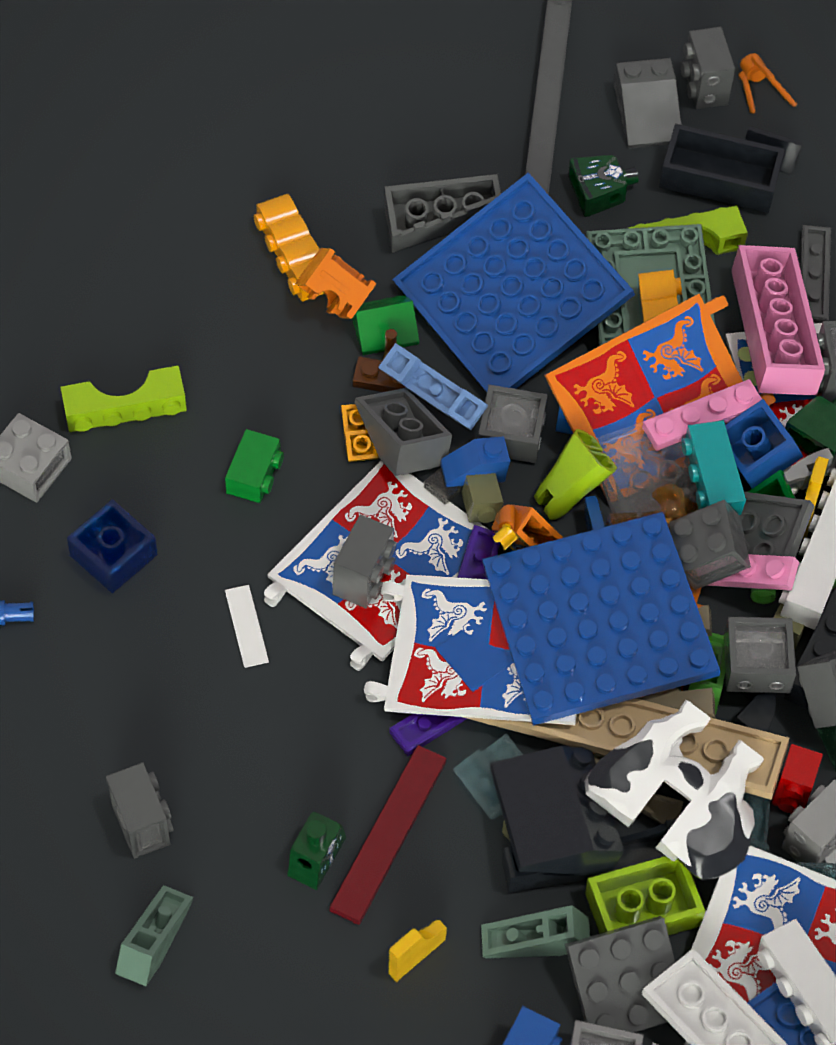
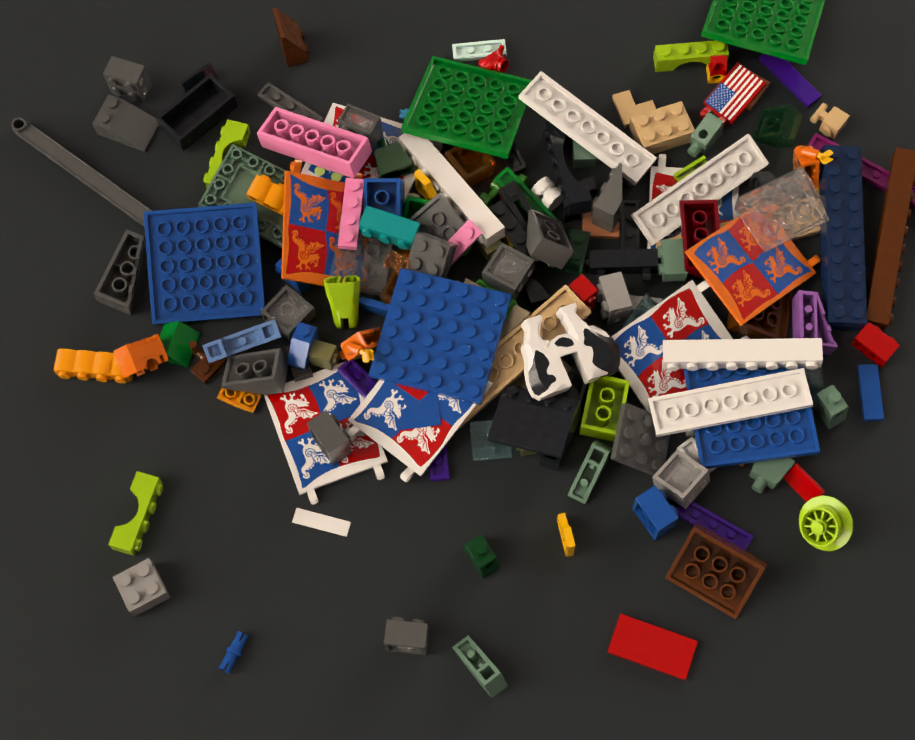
camera: 55 degrees left, 10 degrees up
(112, 546) = (231, 568): clear blue brick -> none
(253, 466) = (226, 465): green brick -> none
(388, 835) = (490, 514): dark red tile -> none
(600, 182) = (161, 179): dark green torso -> none
(756, 71) = (141, 56): orange plant -> none
(802, 470) = (413, 187): light grey slope -> none

